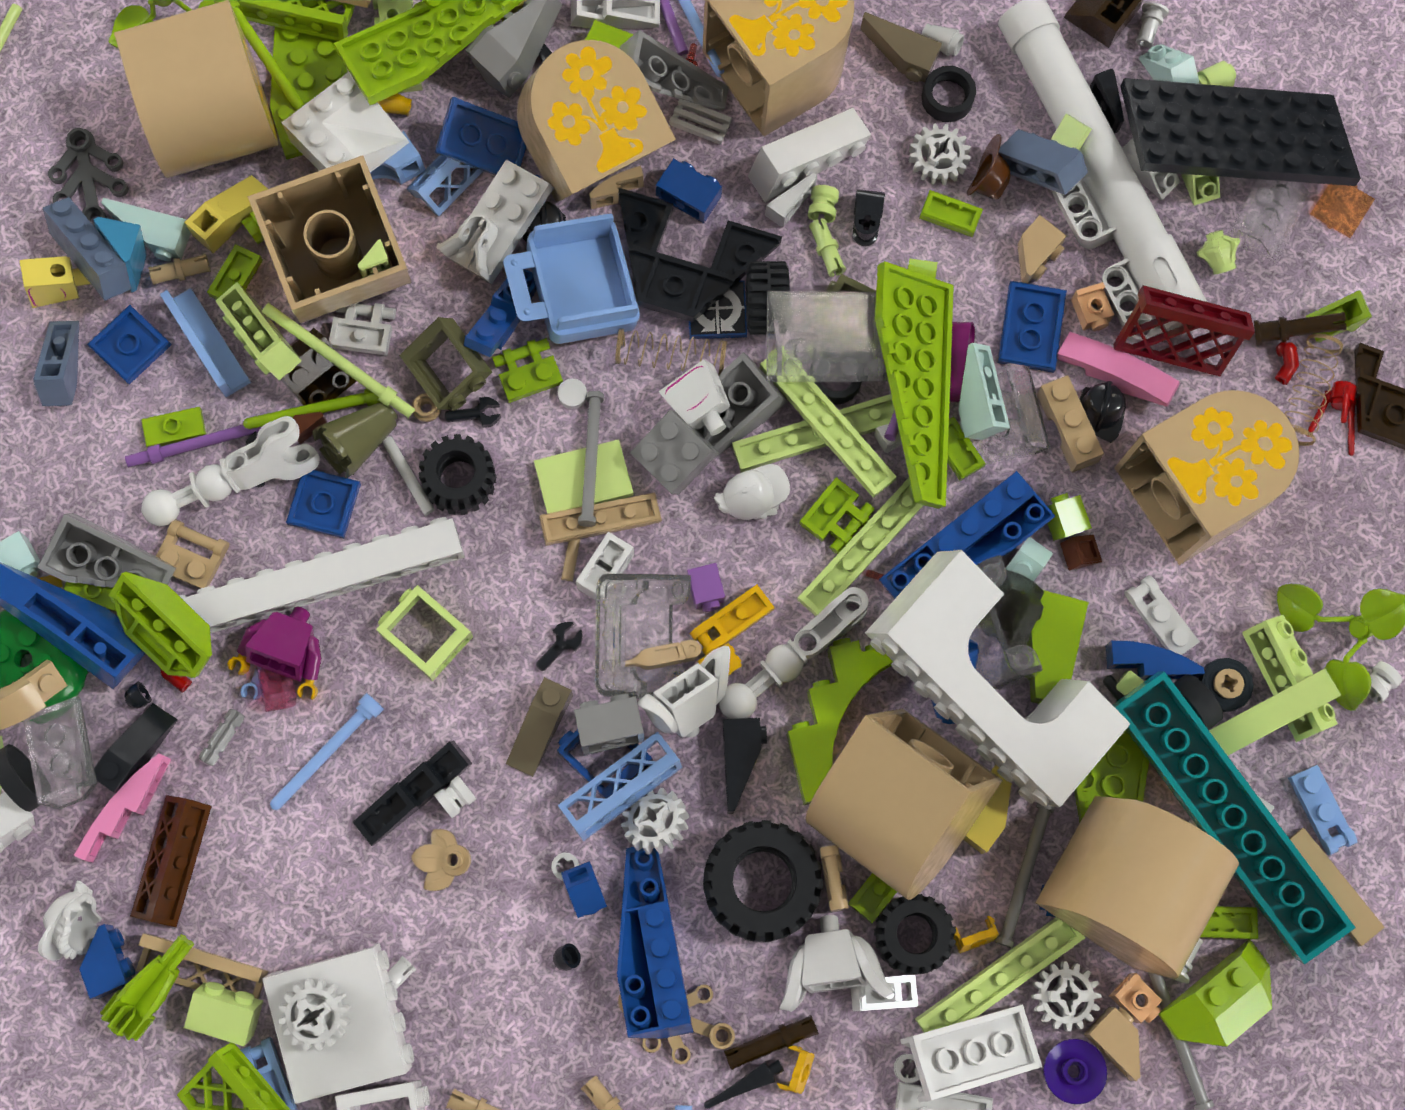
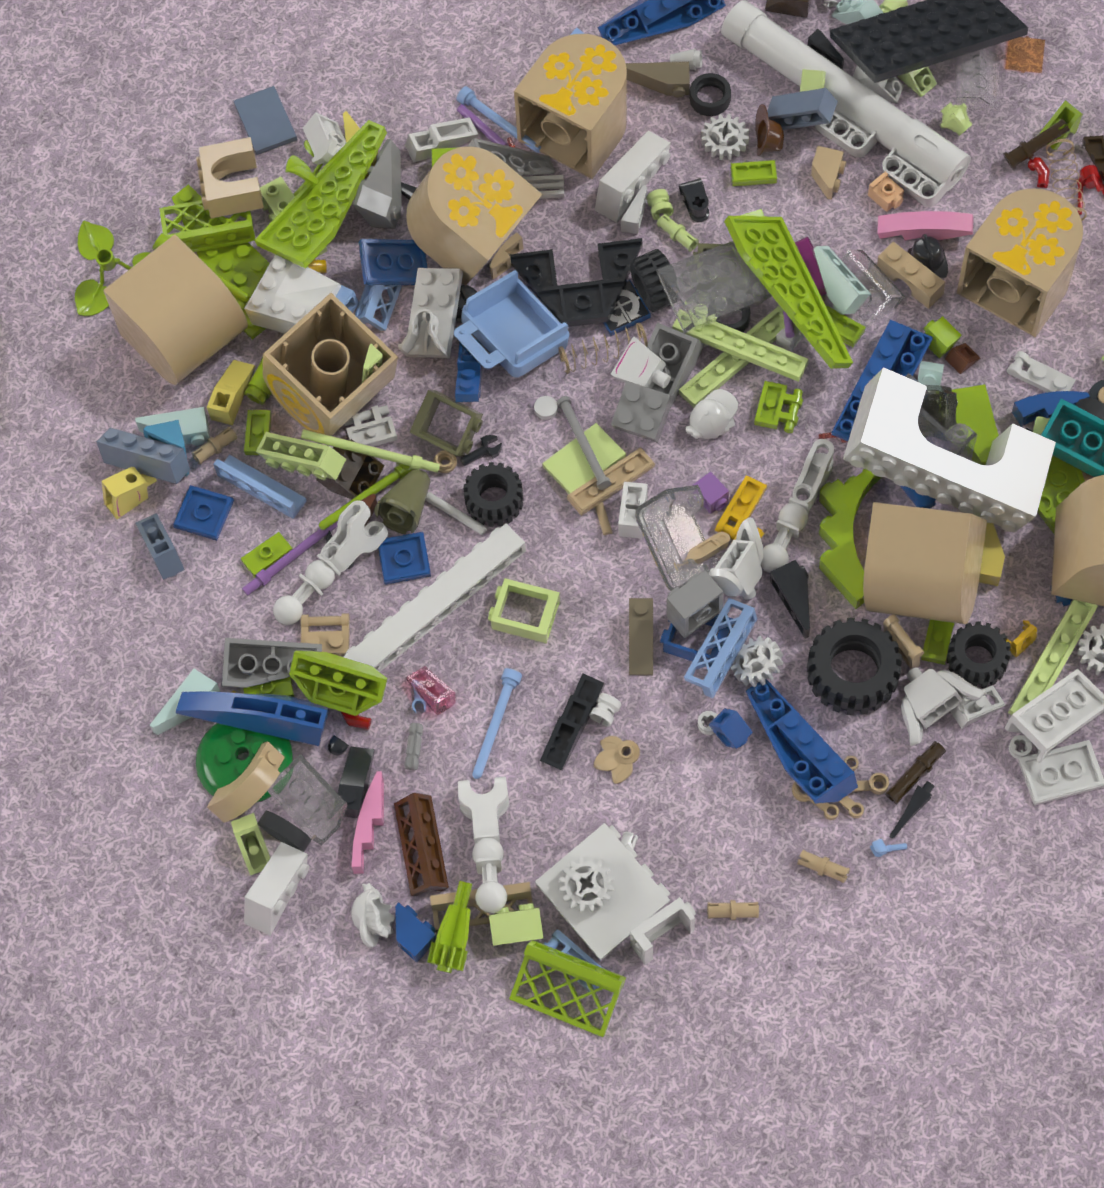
camera: 15 degrees left, 10 degrees down
(86, 173) = (108, 409): dark grey plant -> none
(242, 890) = (487, 851): none -> white piece
(282, 646) = (428, 663): magenta torso -> none
(532, 377) = (510, 410): lime plate -> none
(560, 645) = (626, 578): black bar -> none
(566, 957) = (741, 781): black hinge -> none
(689, 190) = (559, 235): blue brick -> none
(800, 1072) = (947, 782): yellow piece -> none
(861, 550) = (808, 419): yellowish green plate -> none
(1024, 875) = (1043, 632): light grey bar -> none
(1032, 326) = (850, 223): blue tile -> none
(1193, 315) = (961, 161): dark red fence -> none

